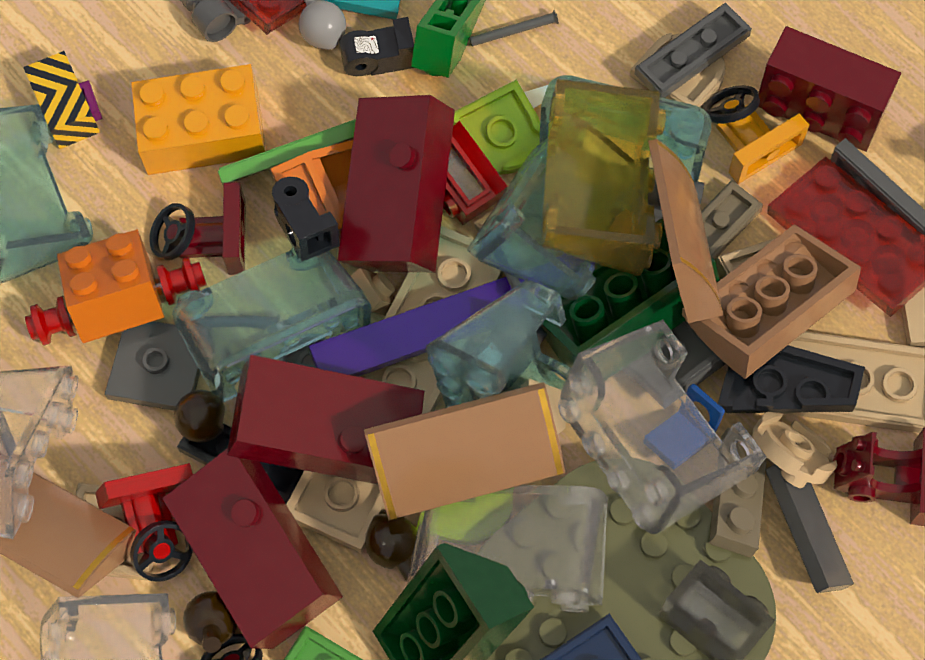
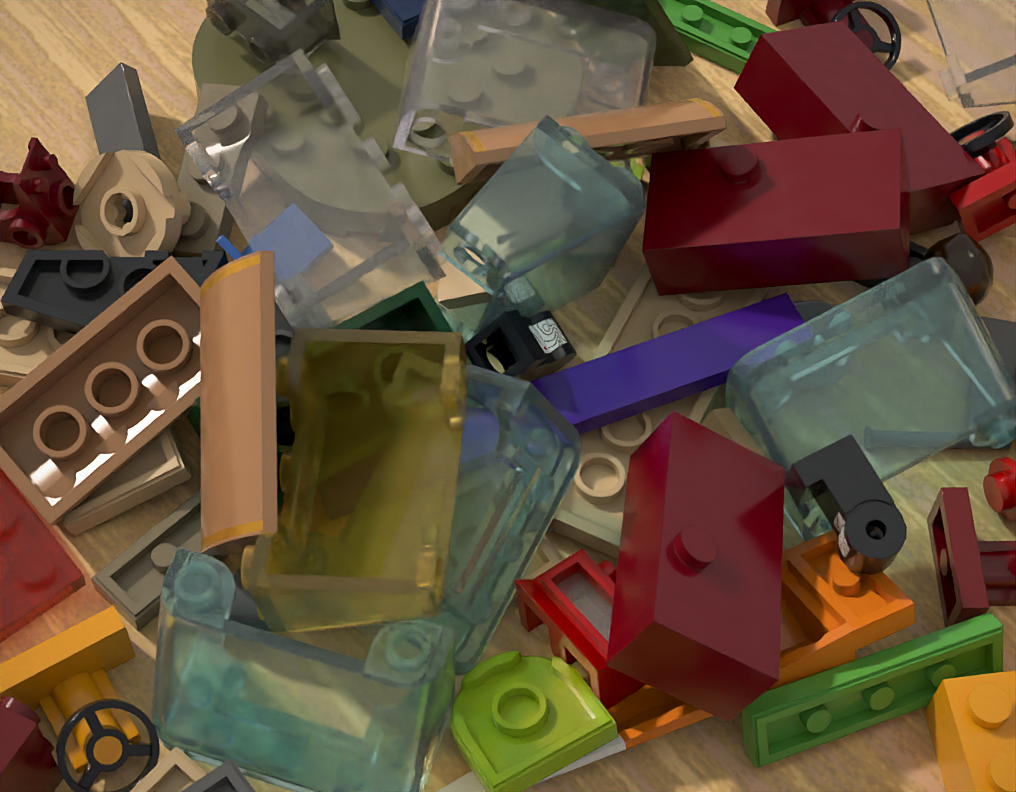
camera: 175 degrees right, 10 degrees down
(208, 621) = (903, 59): dark brown piece -> none

